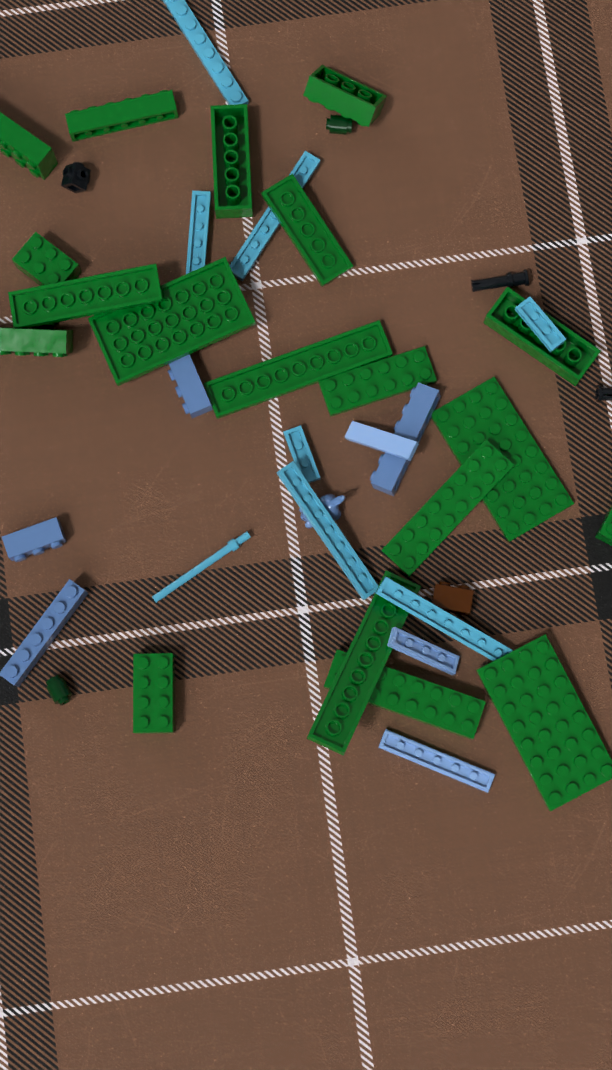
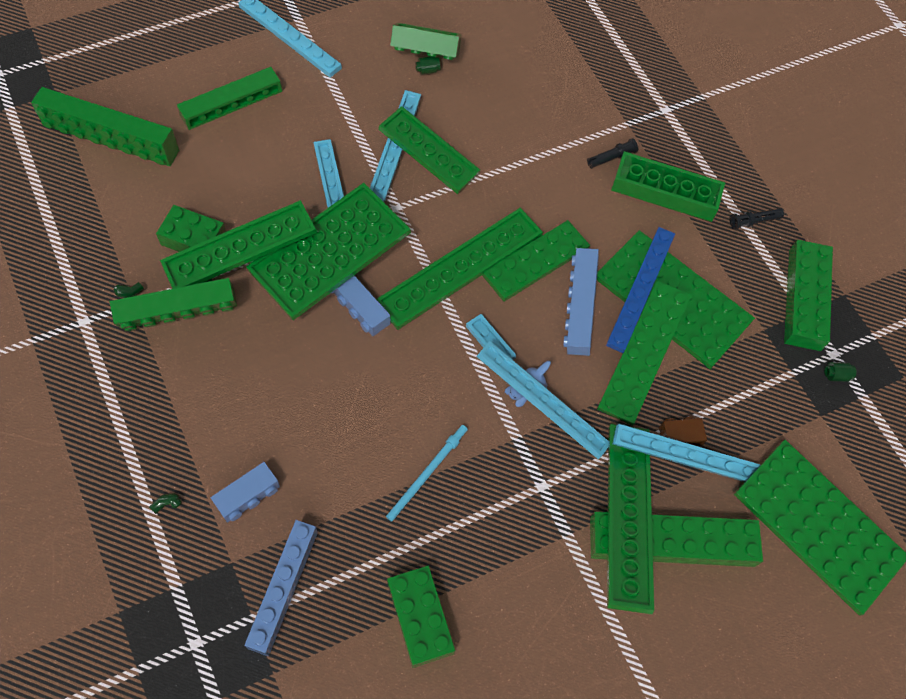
camera: 25 degrees left, 15 degrees down
(58, 690) = (315, 645): dark green brick -> none
(76, 177) = (200, 154): black brick -> none
(231, 161) = (342, 111): green brick -> none
(381, 440) = (563, 306): light blue tile -> none
(423, 651) = (678, 488): light blue tile -> none
(436, 761) = (731, 598): light blue tile -> none
(468, 442) = (640, 290): none -> blue plate
(540, 324) = (666, 172): medium azure plate -> none

